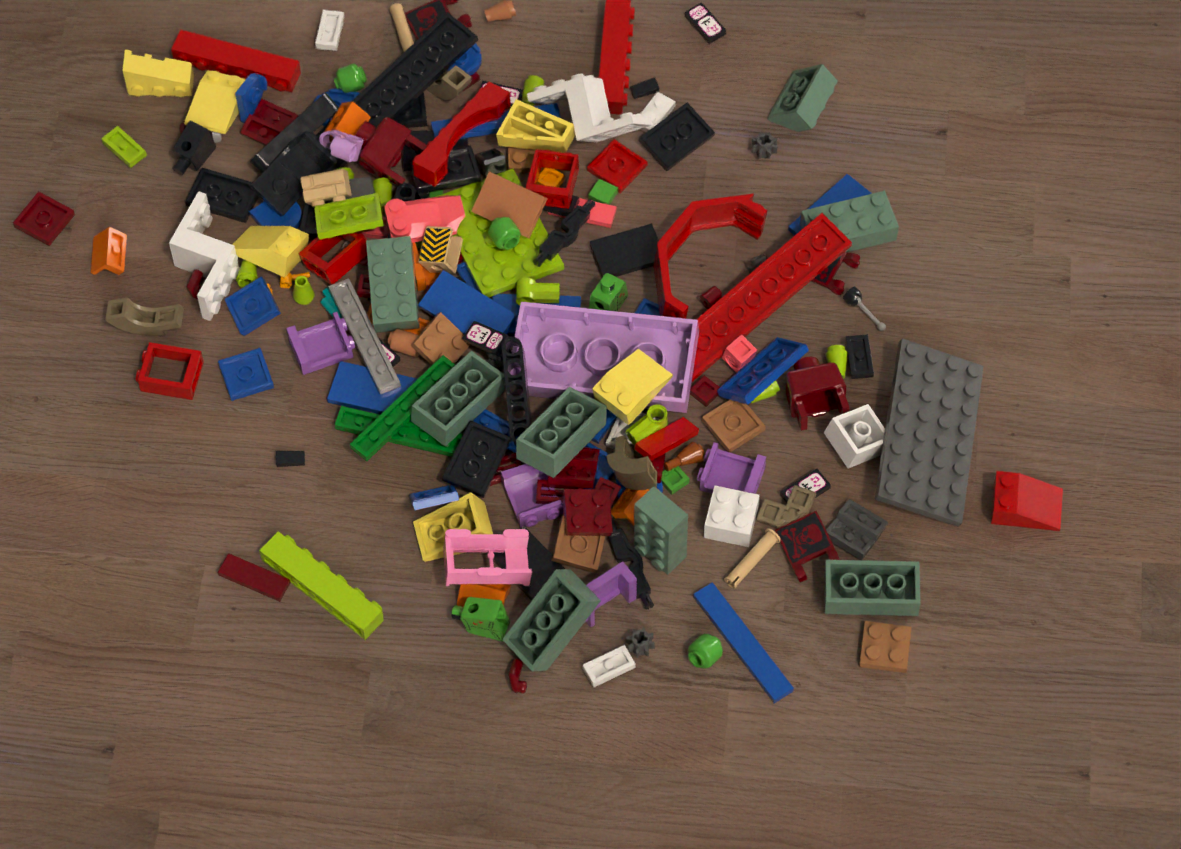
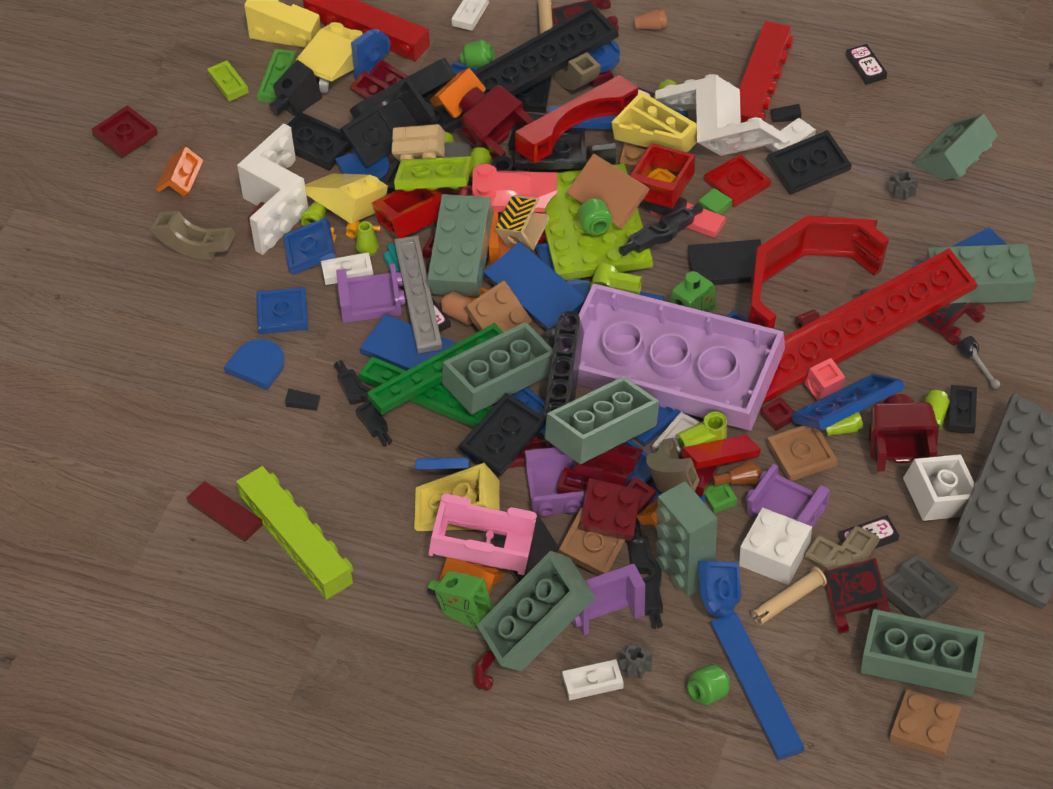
camera: 15 degrees right, 10 degrees down
(167, 131) = (278, 65): none -> bright green tile
(170, 388) = (210, 312): red window -> none
(239, 430) = (257, 363): none -> blue tile
(300, 317) = (355, 265): none -> white plate
(336, 442) = (366, 413): none -> black piece
(343, 145) = (445, 103): lavender piece -> none
(485, 338) = (543, 313): tile -> none
(631, 385) = (691, 385): light yellow slope -> none
(695, 563) = (719, 586): none -> blue tile

